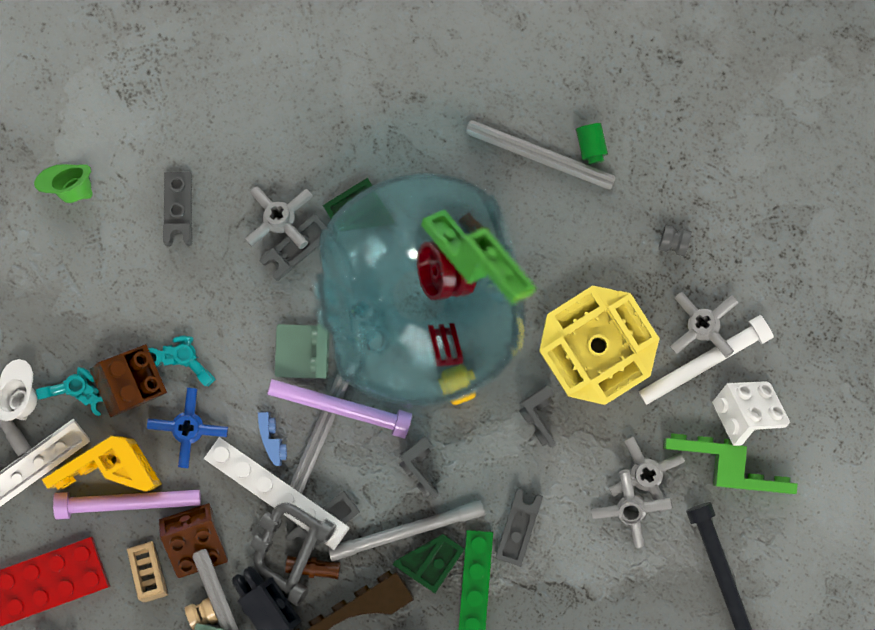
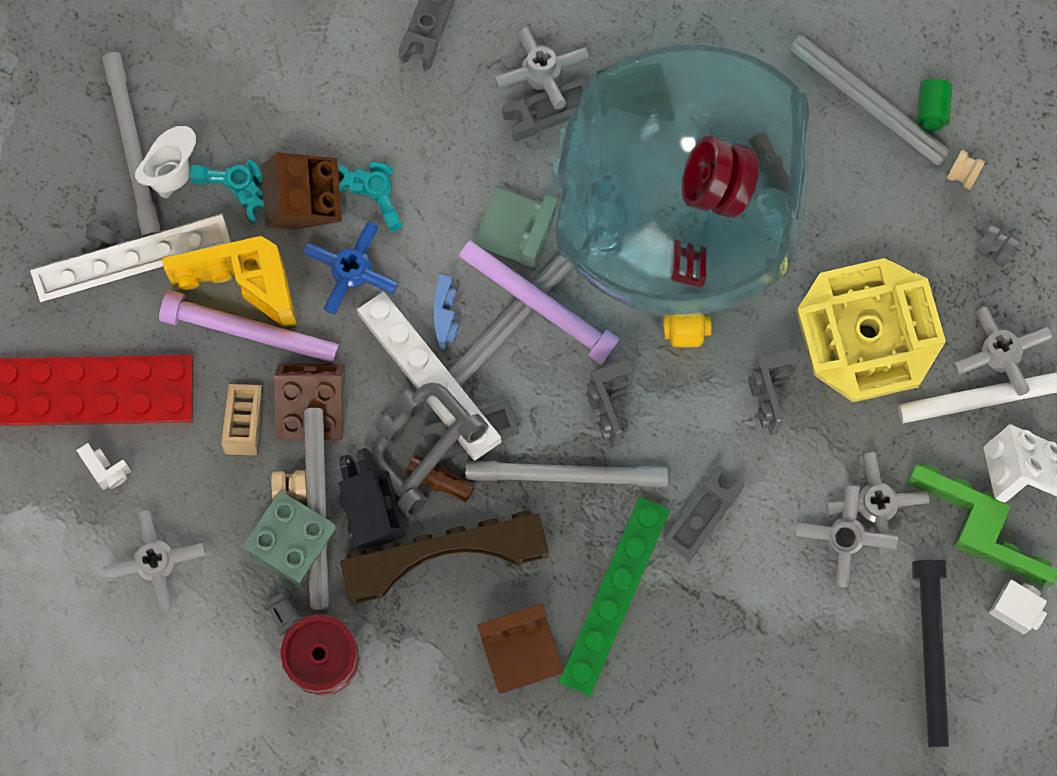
camera: 15 degrees right, 10 degrees down
(431, 561) = (584, 519): dark green wing -> none
(478, 256) = (765, 157): bright green bracket -> none
(632, 188) = (965, 169): none -> tan wheel
(776, 517) = (1019, 607): none -> white brick

